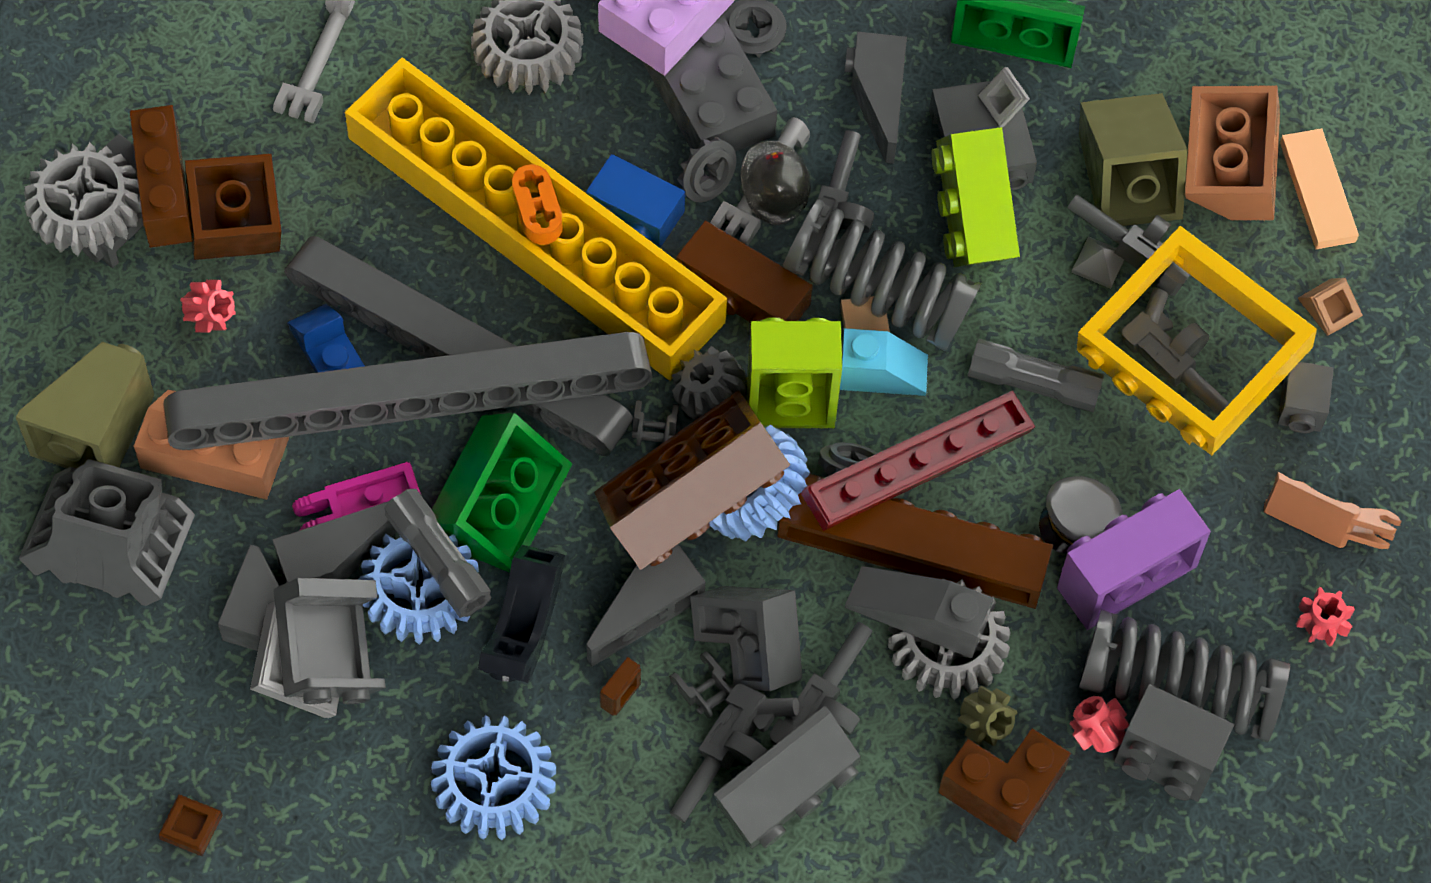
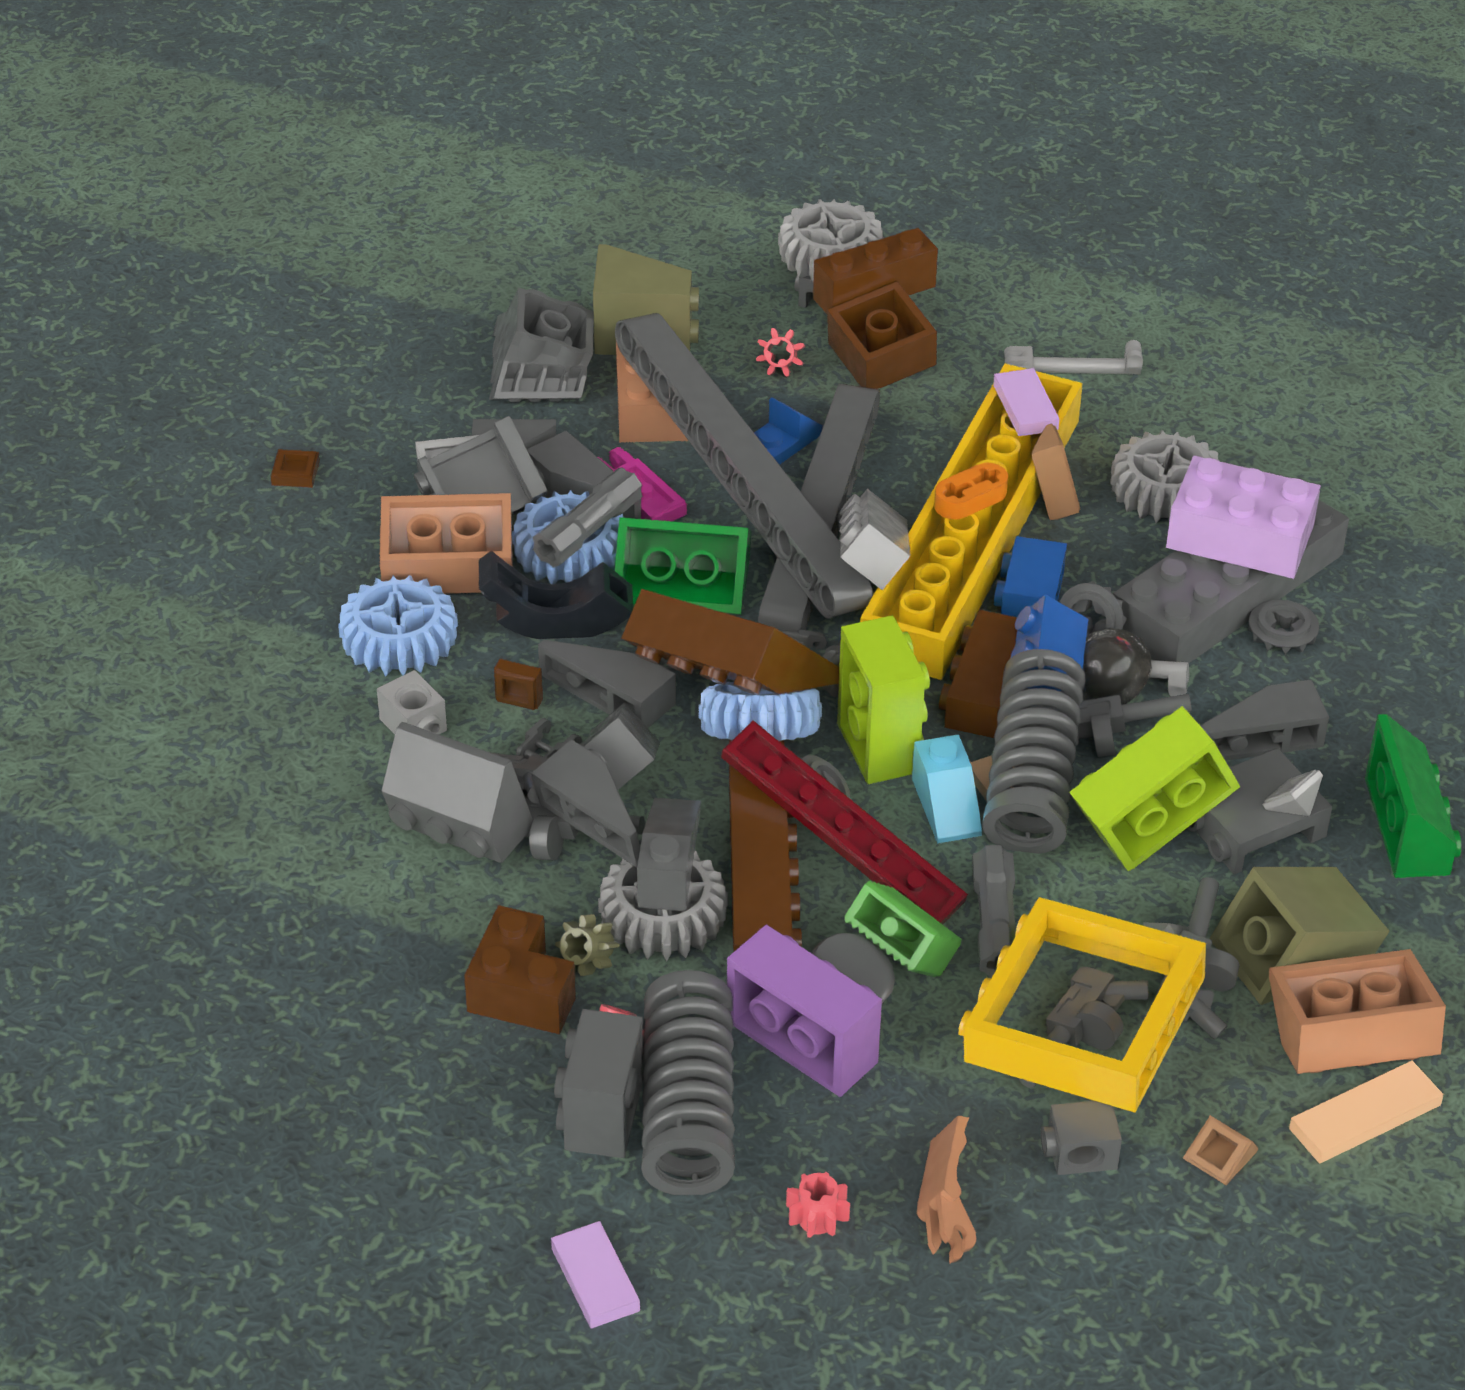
camera: 75 degrees right, 20 degrees down
(405, 697) = (444, 537): none -> nougat slope
(422, 113) = (1025, 401): none -> lavender tile
(511, 121) = (1054, 475): none -> medium nougat slope
(574, 308) = (873, 538): none -> light grey brick
(617, 810) = (413, 702): none -> light grey brick
(757, 217) = (1051, 627): none -> blue brick
(838, 656) = (582, 792): none -> dark grey slope
(1051, 453) = (902, 929): none -> bright green brick
(1345, 812) = (595, 1274): none -> lavender tile

